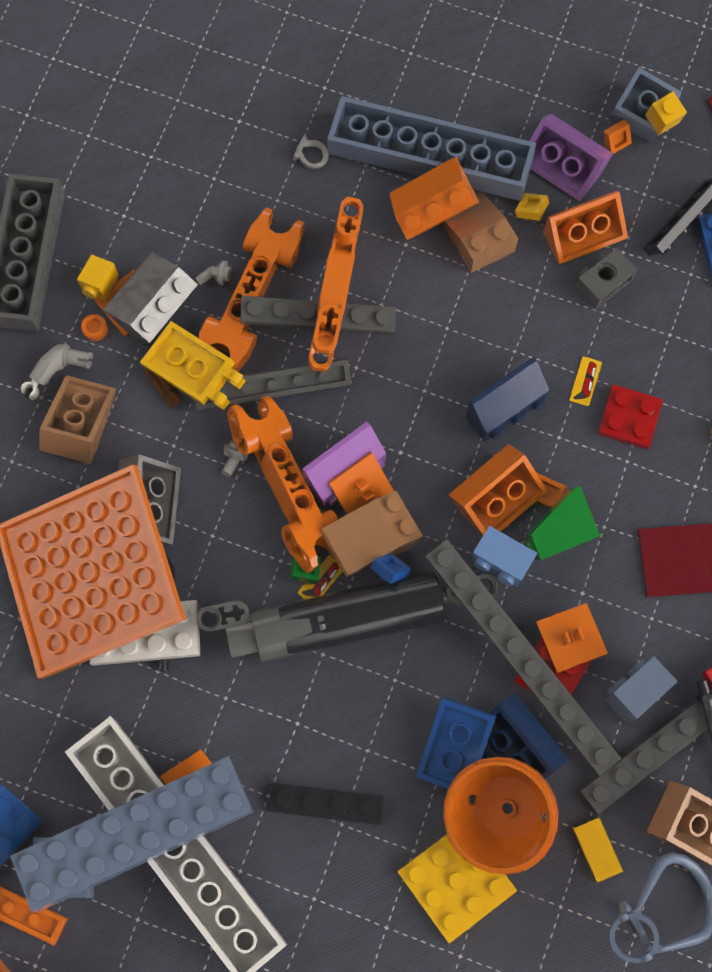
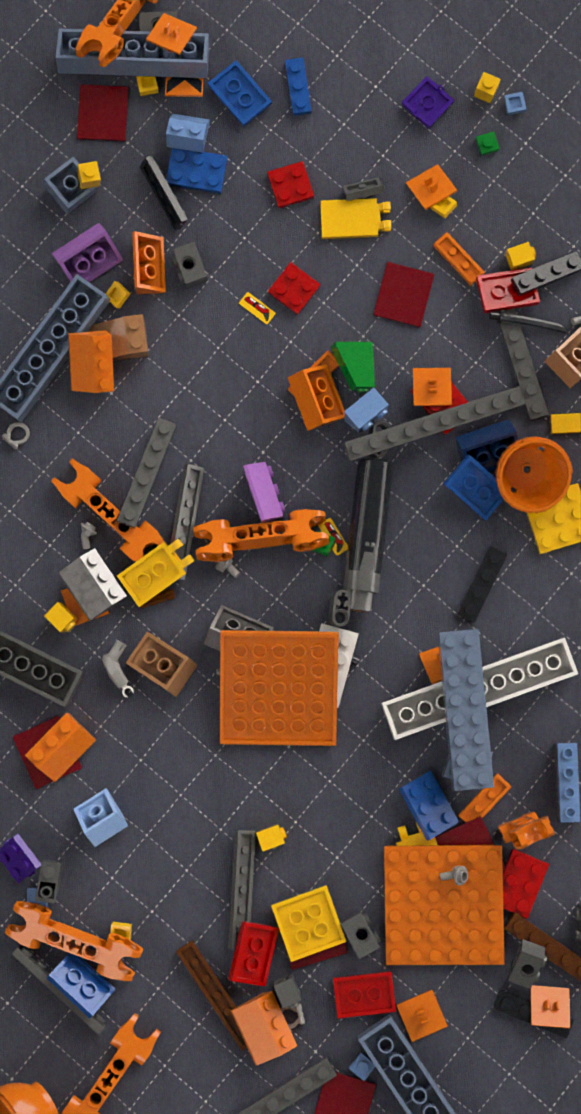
camera: 70 degrees left, 10 degrees up
(94, 327) = (95, 632): orange tile -> none
(335, 284) = (131, 452): orange piece -> none
(360, 484) = (282, 486): orange piece -> none
(371, 532) = (318, 491): medium nougat slope -> none
(390, 568) = (348, 486): blue plate -> none
(508, 400) = (257, 366): dark blue slope -> none
(617, 136) = (85, 214): orange plate -> none
(645, 685) = (482, 357): sand blue brick -> none

